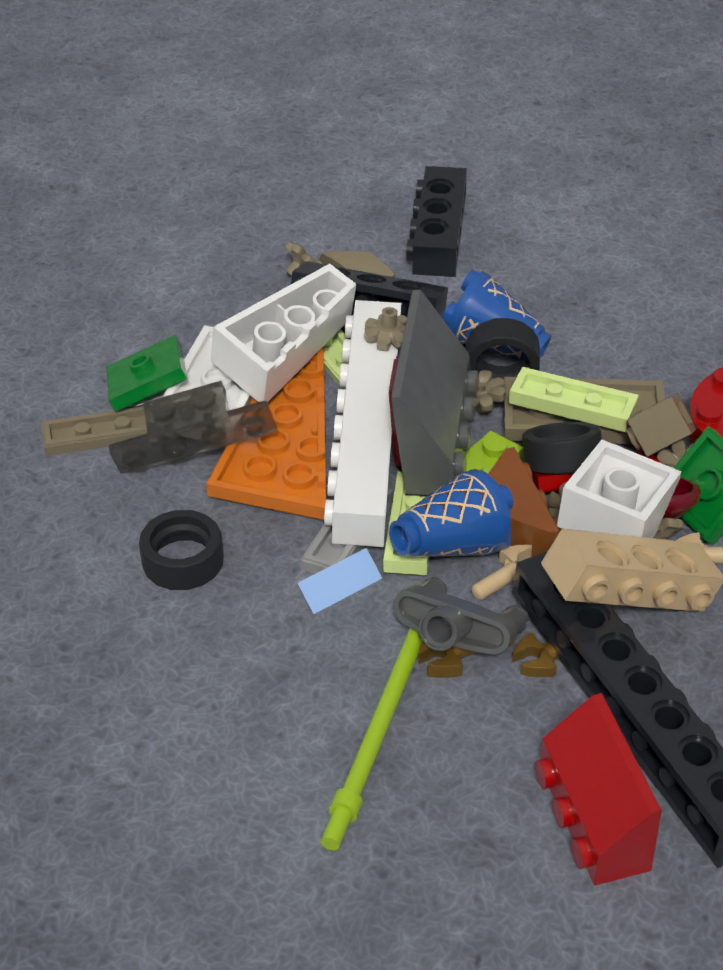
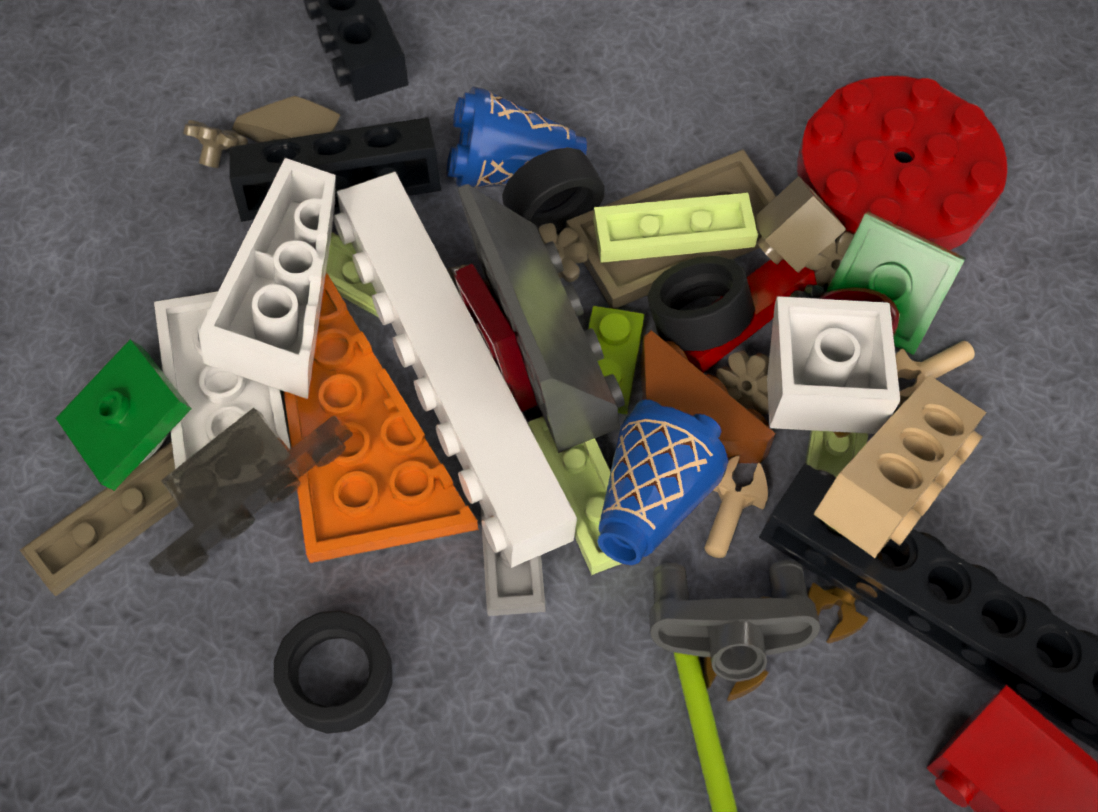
camera: 30 degrees left, 20 degrees up
(339, 580) = (550, 617): light blue sticker -> none
(386, 329) = (410, 226): dark tan plant -> none

